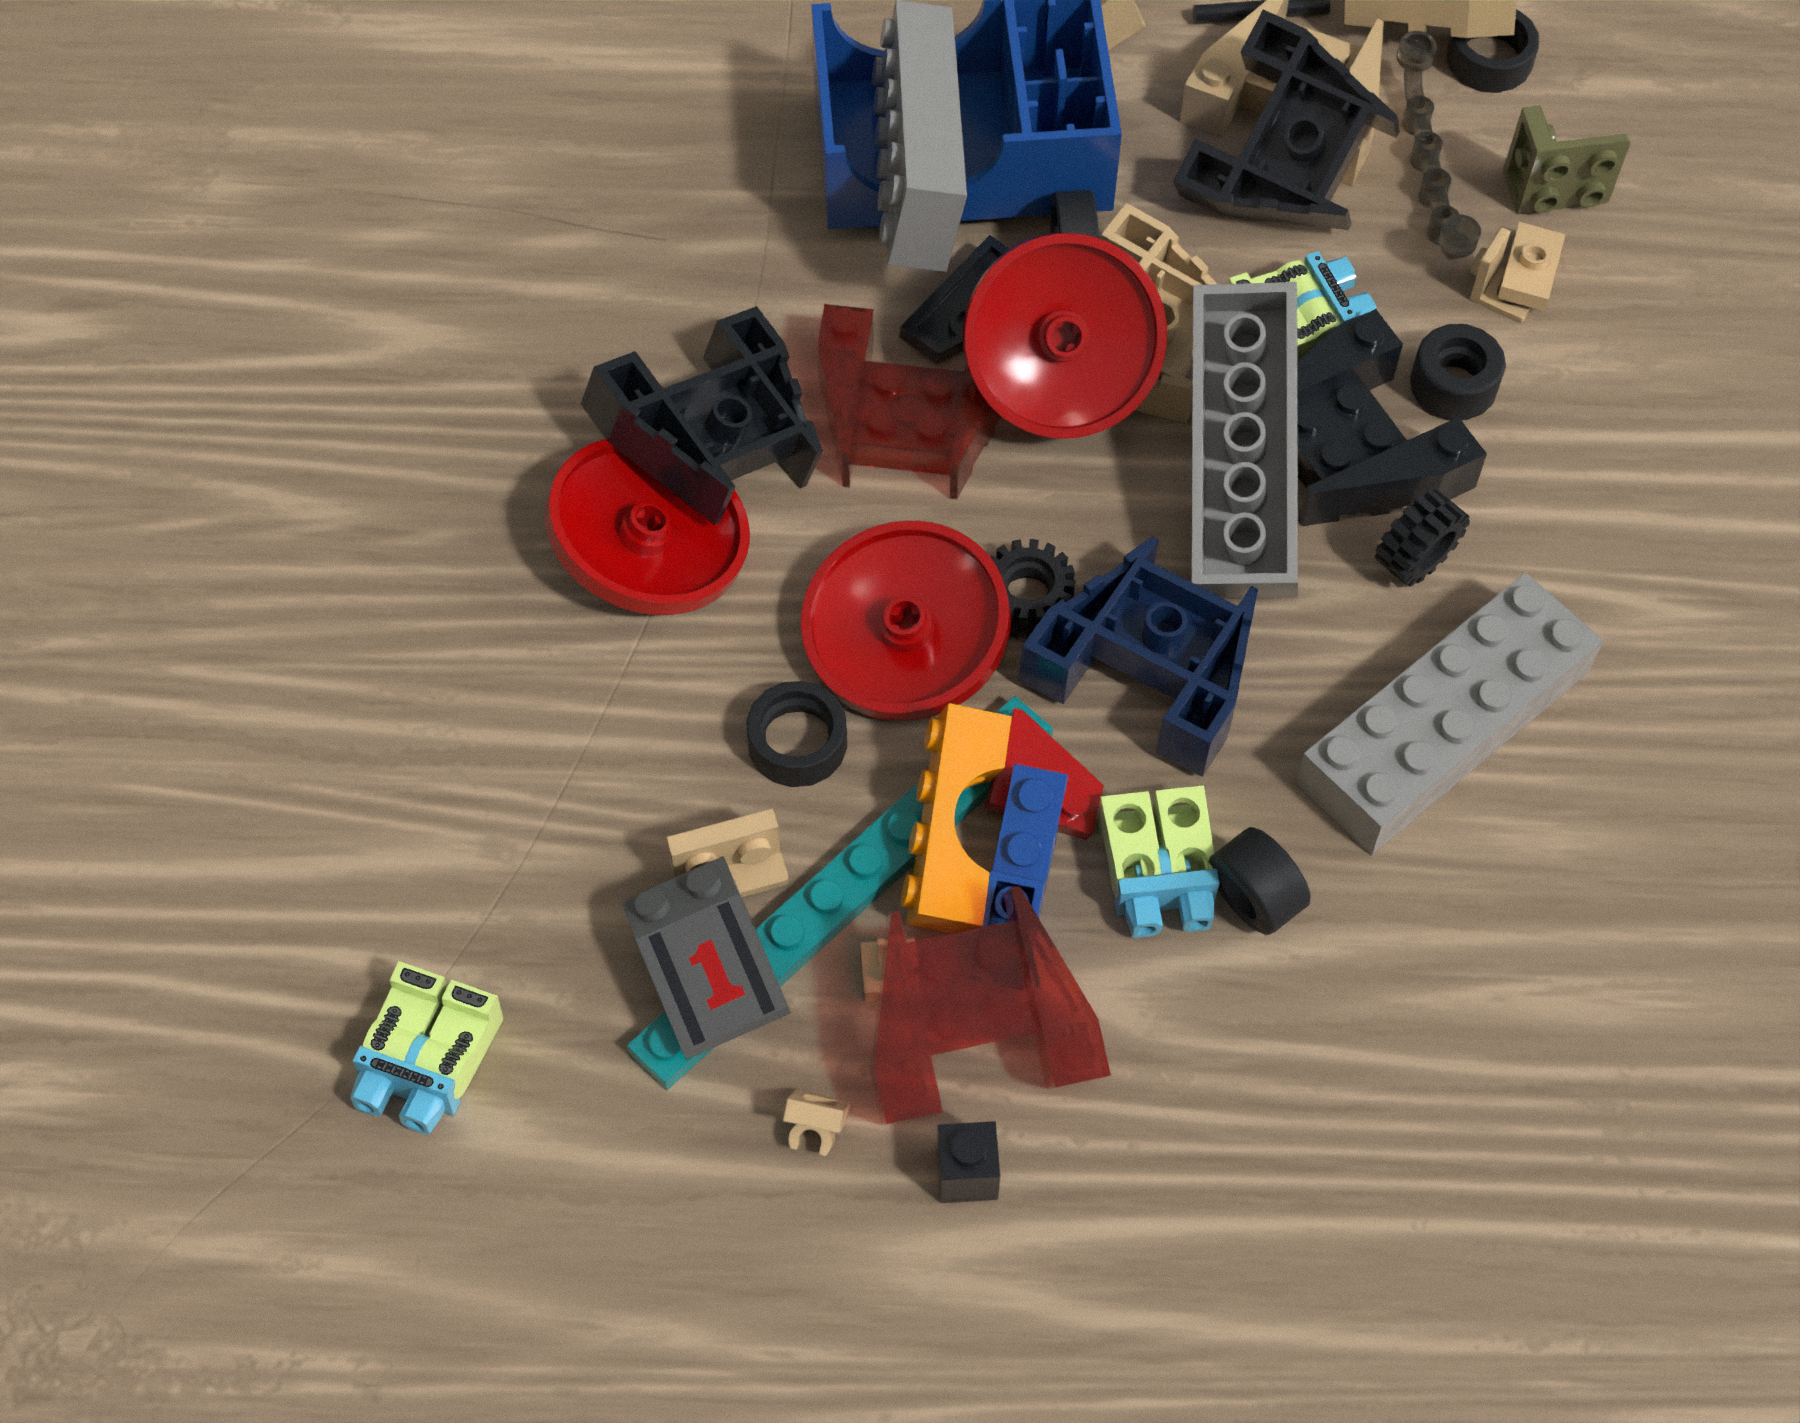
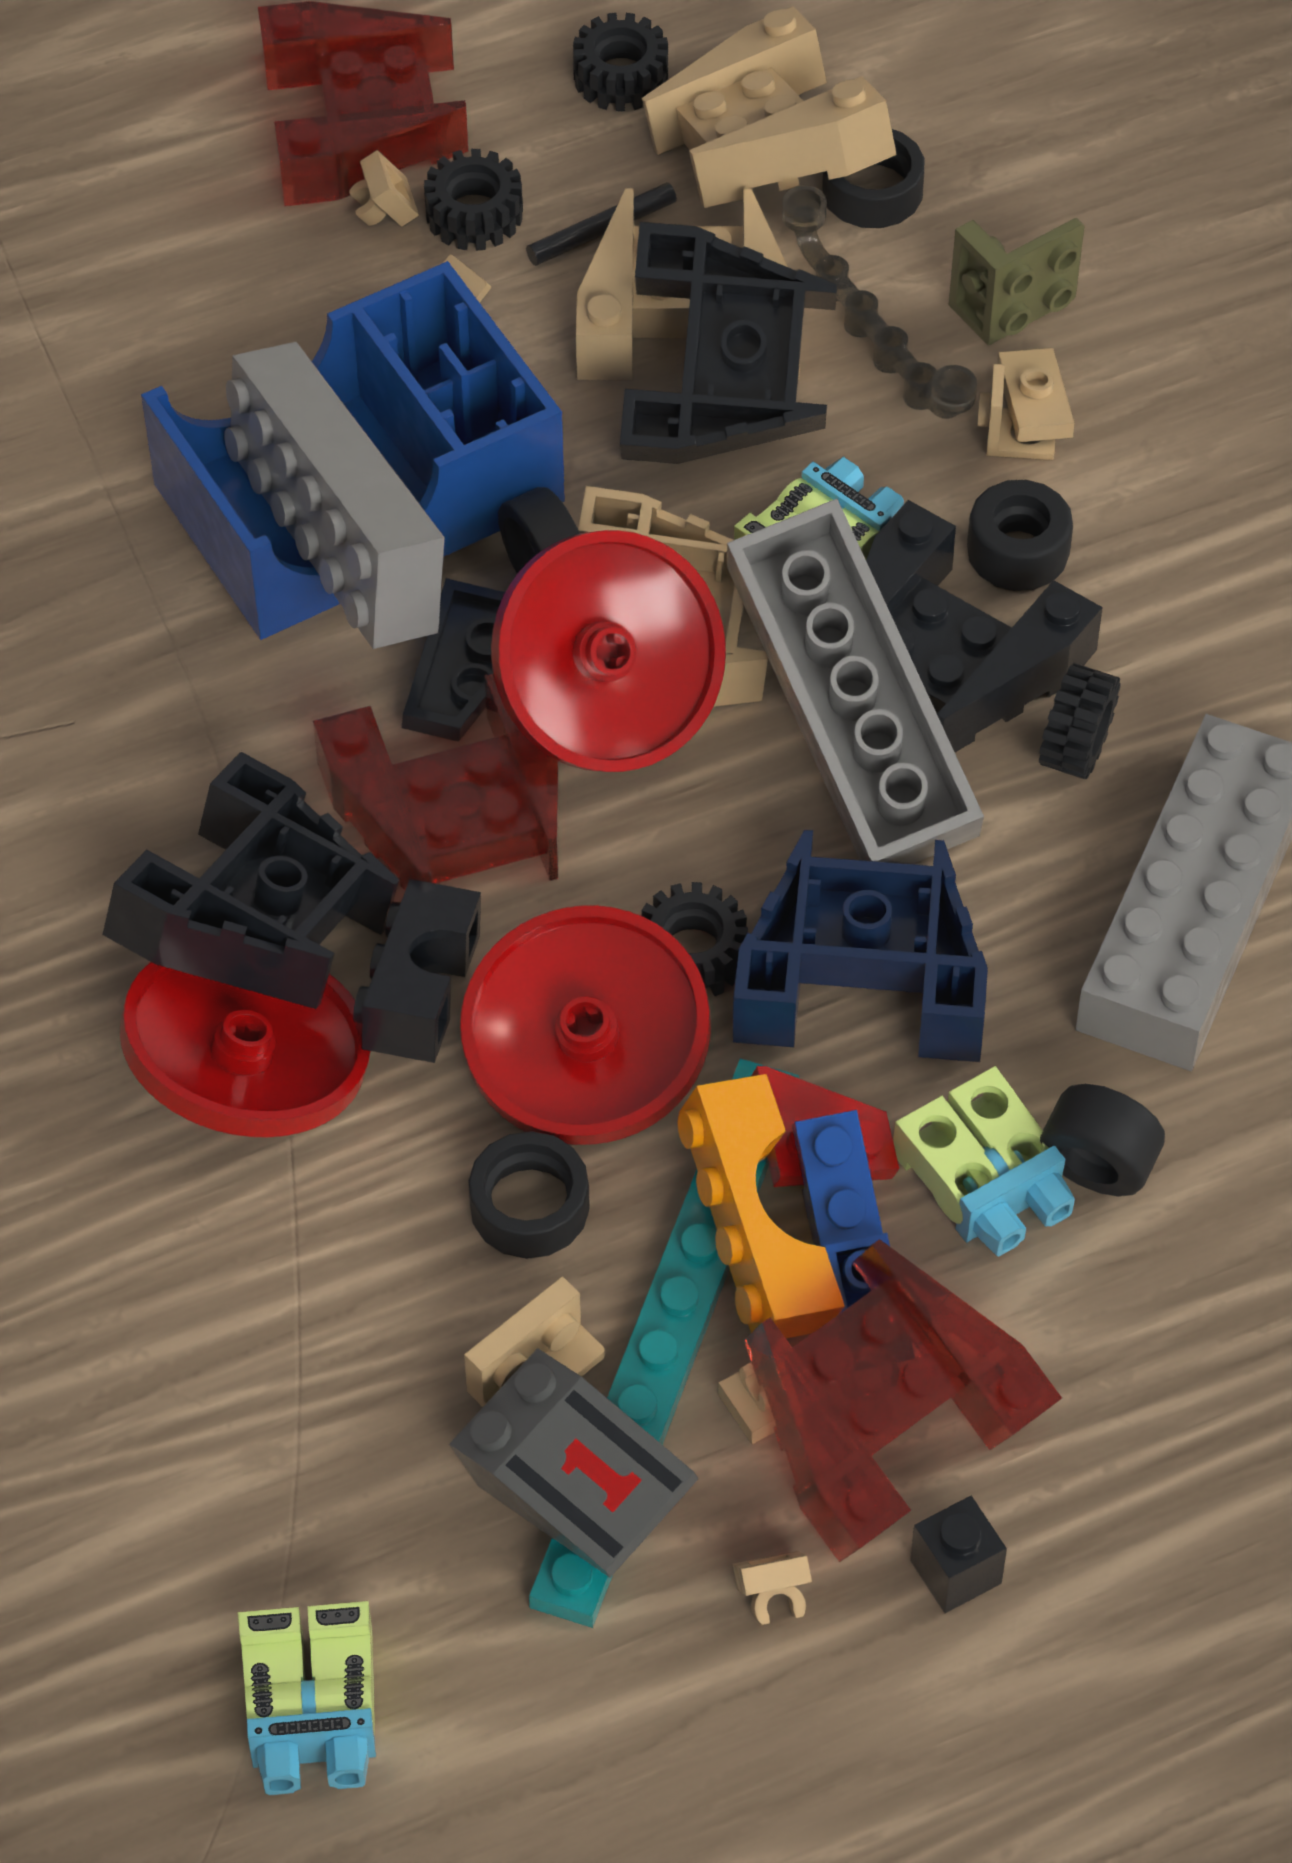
camera: 25 degrees left, 5 degrees down
(776, 546) = (406, 1001): none -> black arch

